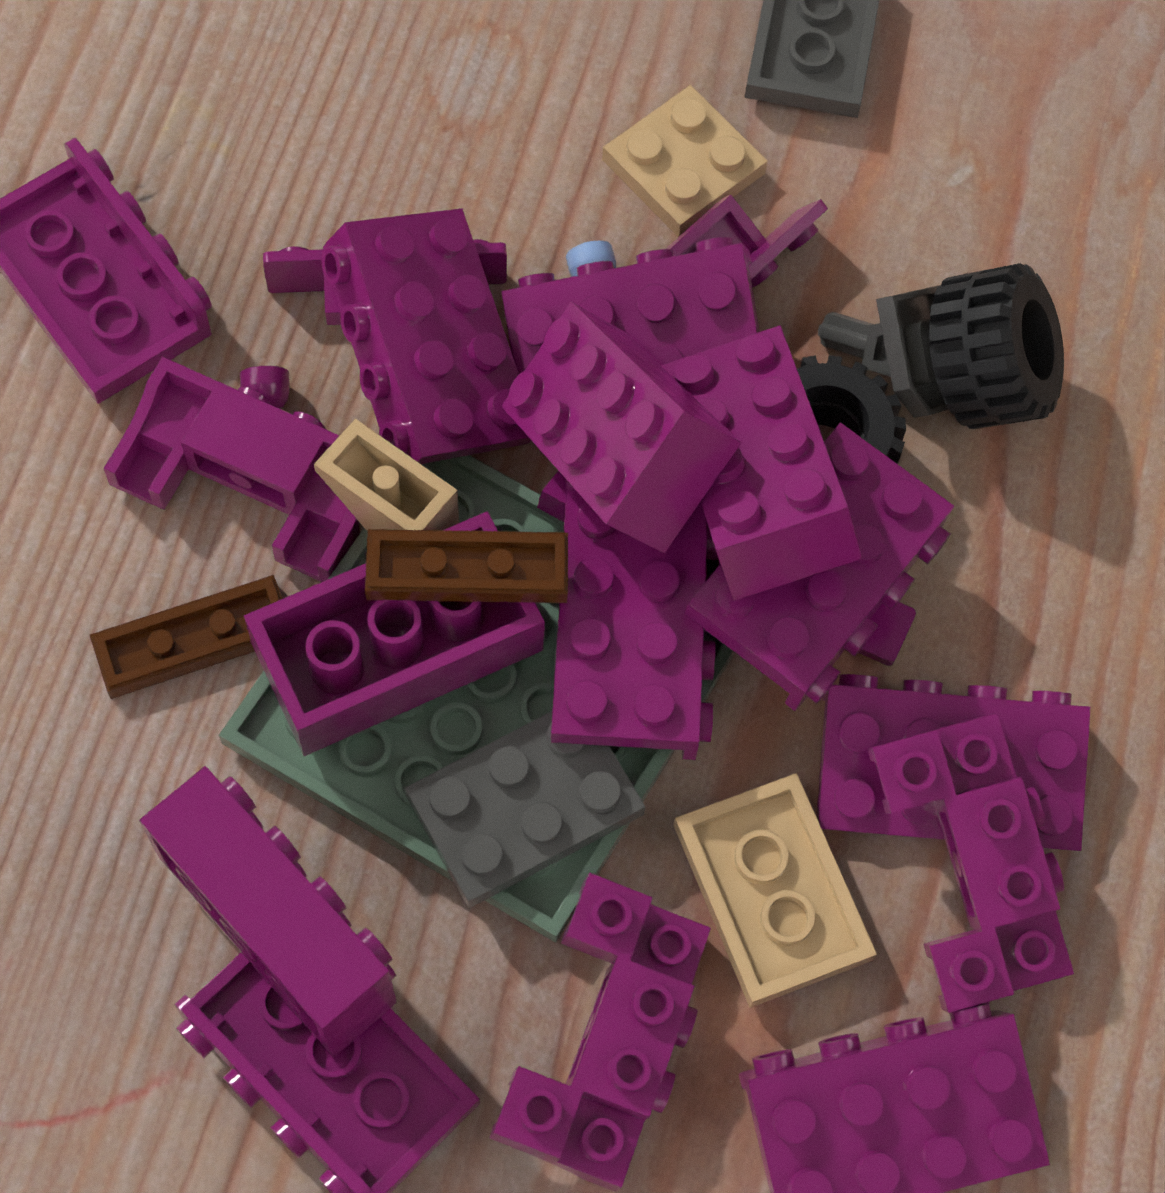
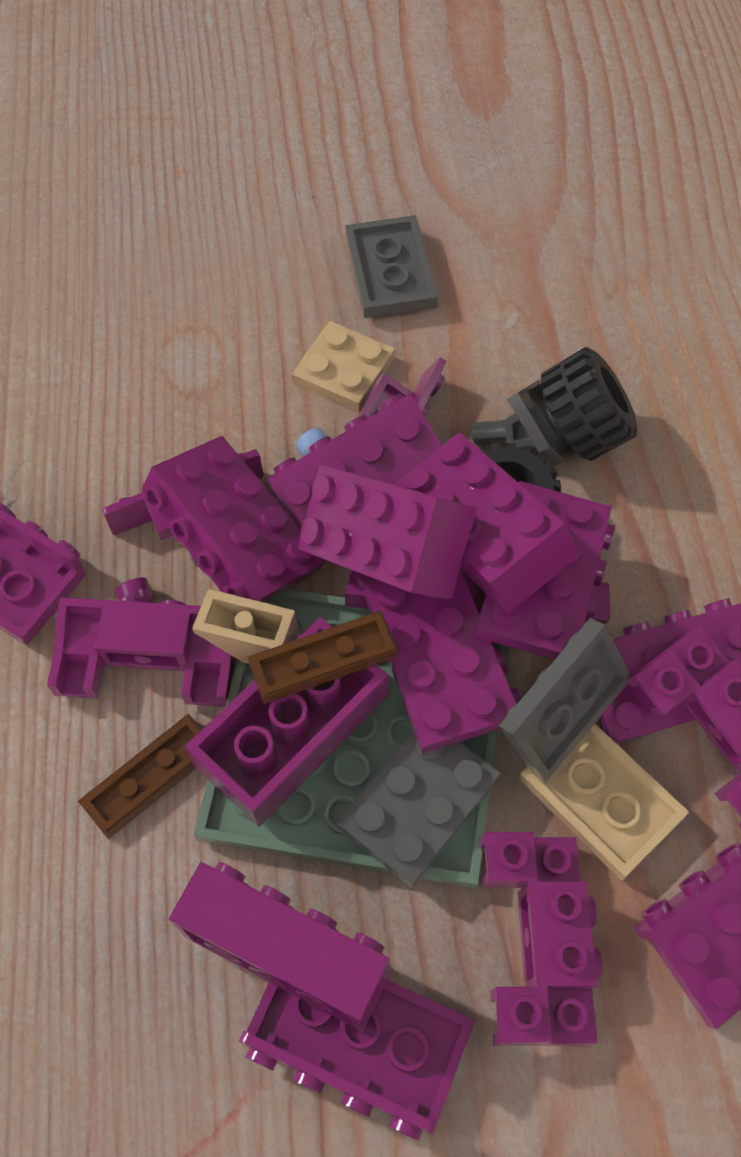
camera: 15 degrees left, 5 degrees down
(768, 744) = (566, 700): none -> dark grey plate

